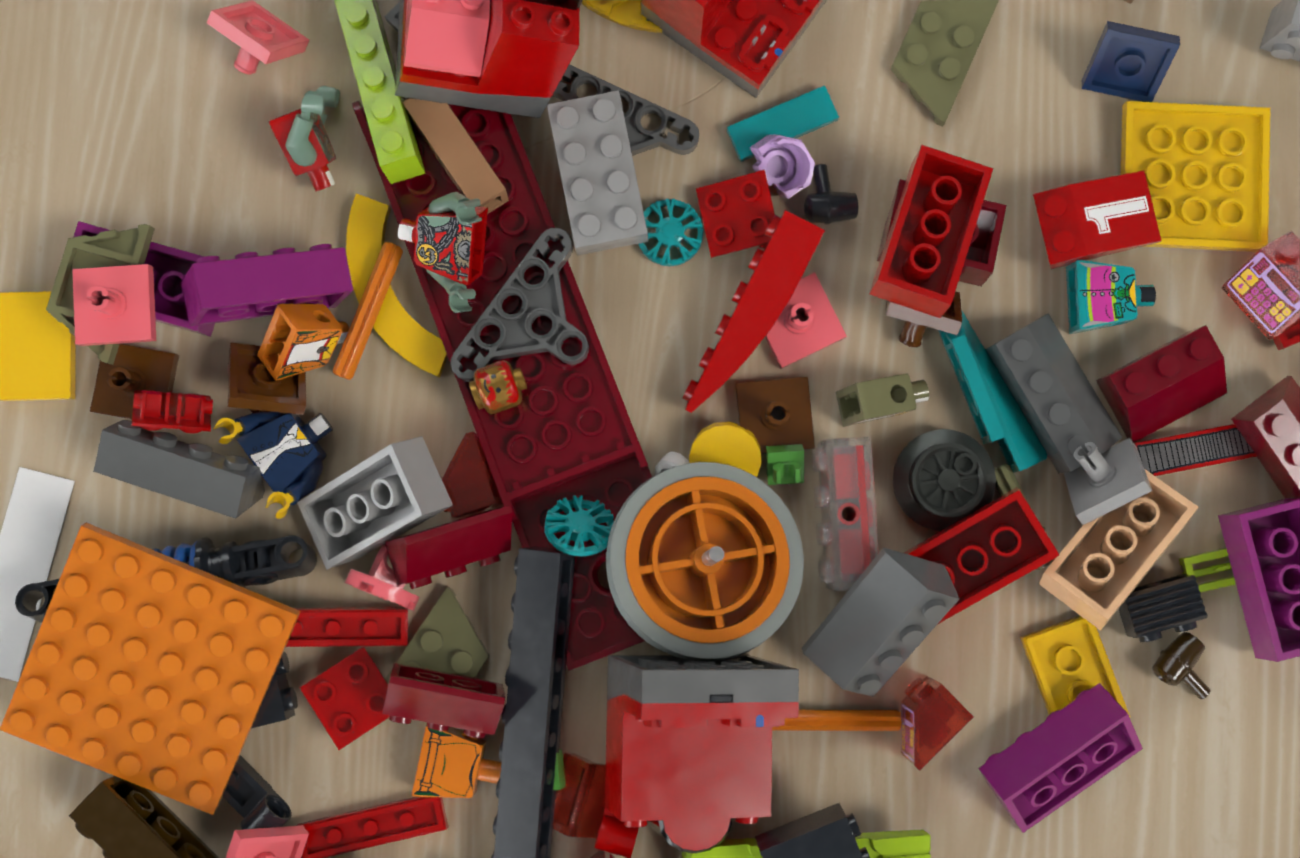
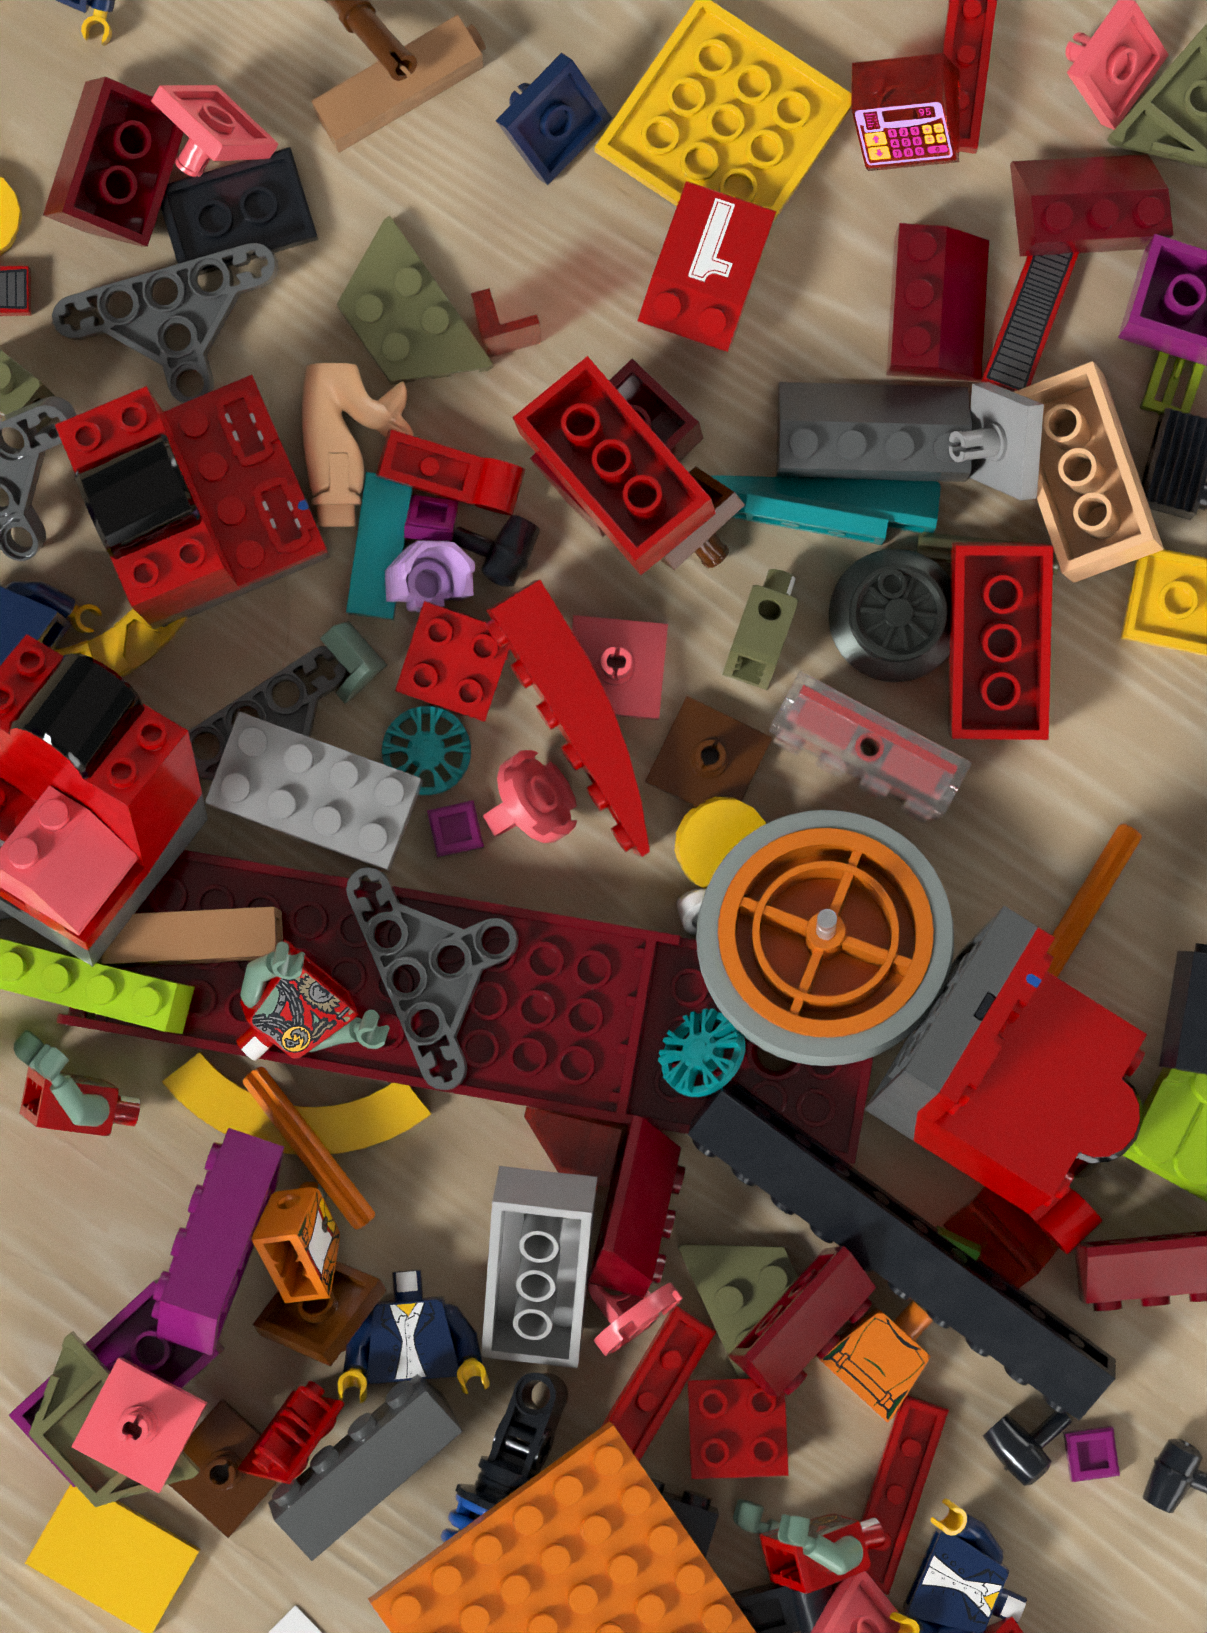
camera: 60 degrees left, 0 degrees up
(297, 797) = (811, 1551): none -> torso
(497, 387) = (492, 1050): pearl gold head -> none
(630, 281) = (455, 829): none -> magenta tile
(679, 317) = (533, 799): none -> coral tile
(701, 150) = (355, 656): none -> sand green tile
(785, 464) = (770, 782): bright green tile -> none
(820, 143) = (431, 519): none -> magenta tile
(824, 54) = (330, 449): none -> light nougat piece
(857, 138) = (450, 473): none -> red plate
(881, 621) = (1008, 784): dark grey slope -> none
(929, 720) = (1148, 797): clear red slope -> none
(969, 116) = (507, 336): none -> clear red panel
(1103, 295) = (798, 309): torso -> none

